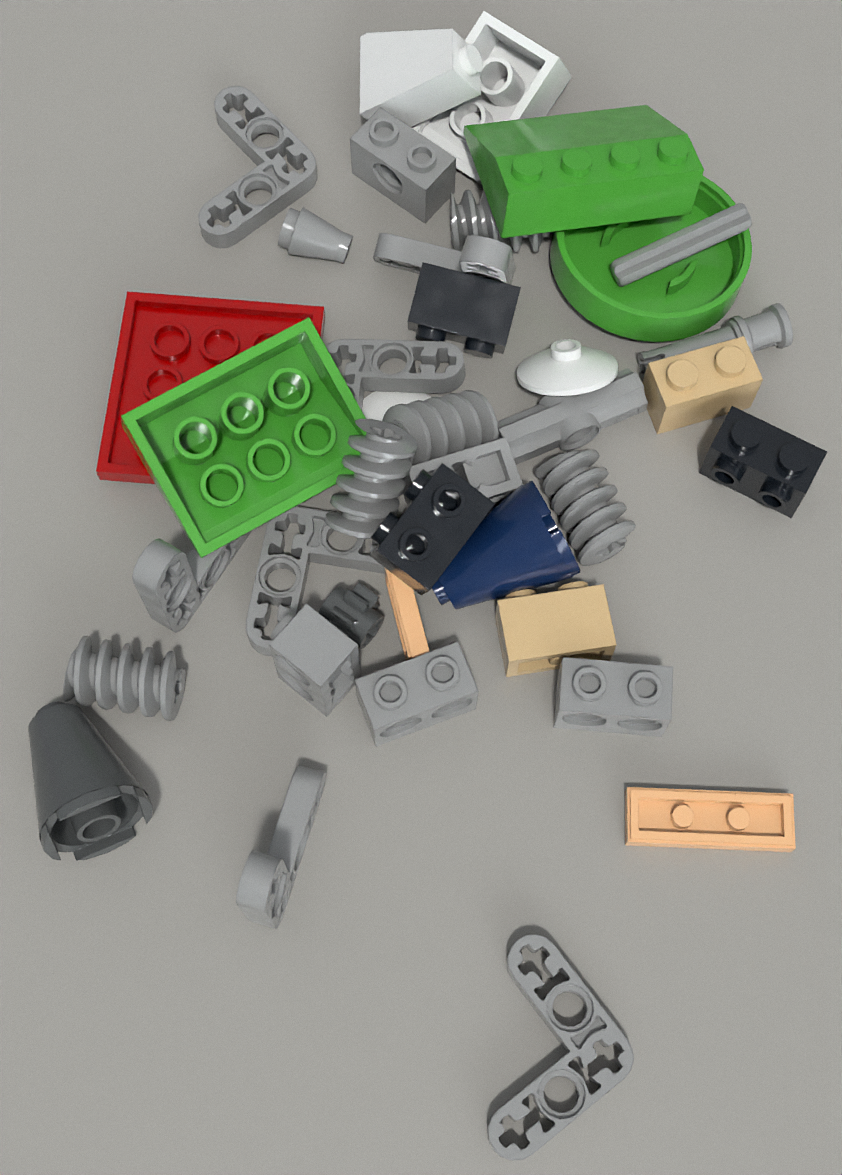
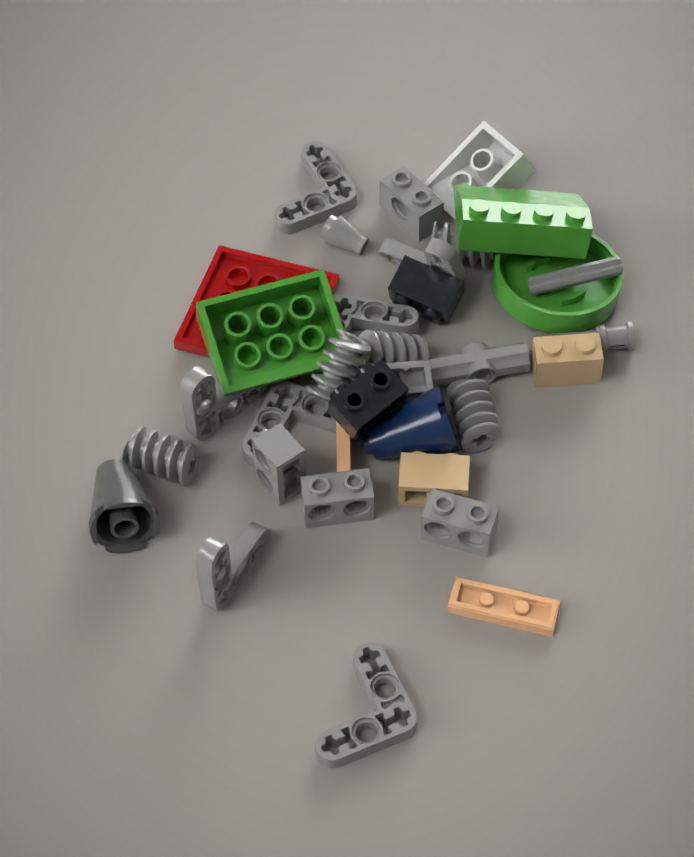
camera: 15 degrees right, 15 degrees down
(354, 613) = (314, 444): dark grey gear -> none
(417, 73) = (433, 150): white slope -> none
(567, 369) = (483, 334): white dish -> none
(762, 462) = (594, 410): black brick -> none

